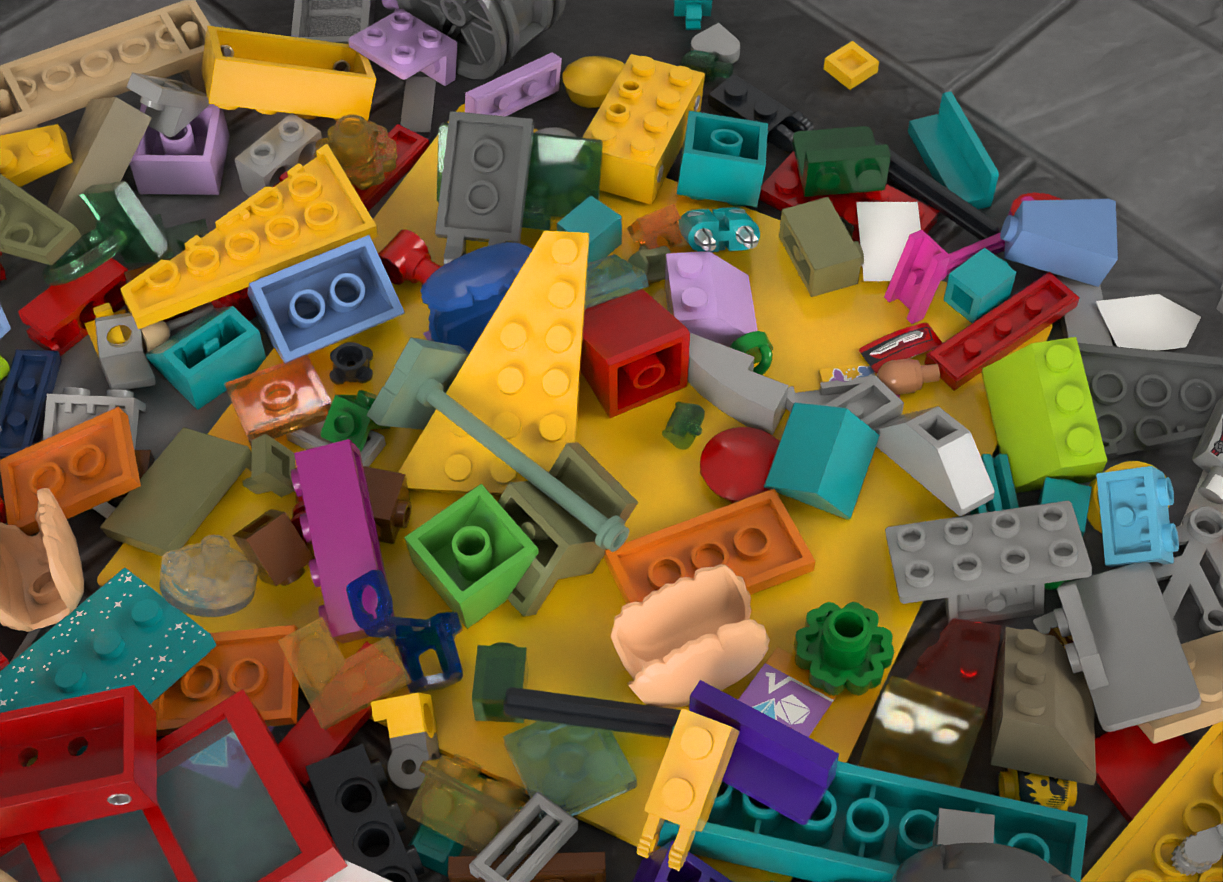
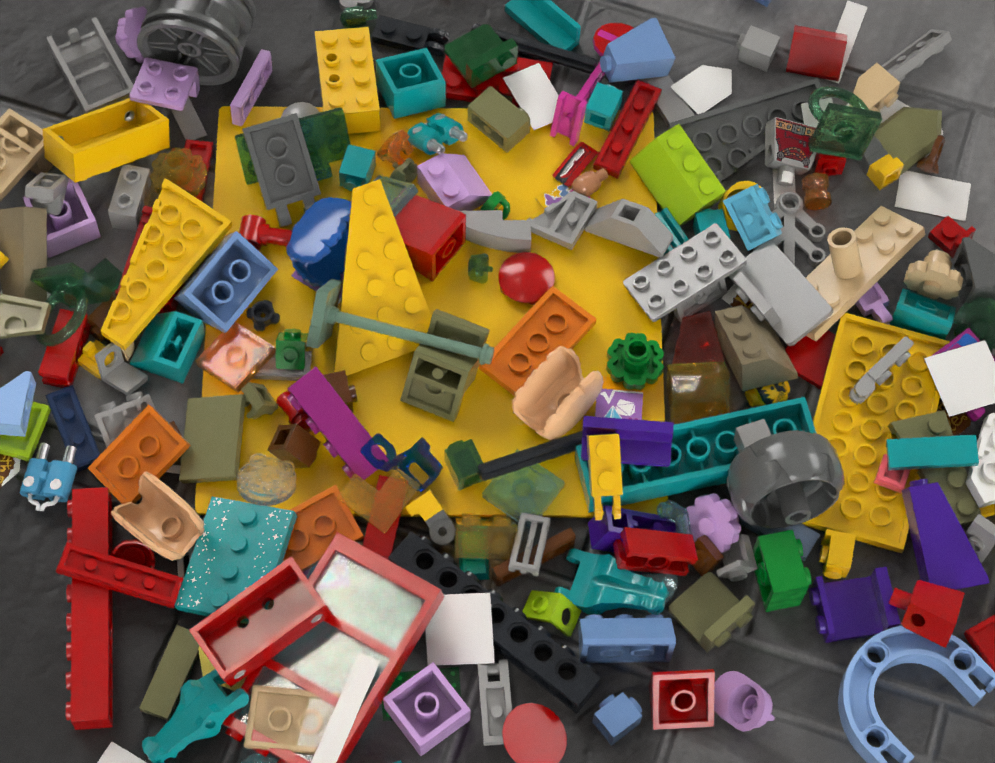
camera: 30 degrees left, 10 degrees up
(472, 554) = (410, 399): bright green slope -> none
(591, 79) = (293, 54): yellow hat -> none
(823, 458) = (570, 256): teal slope -> none

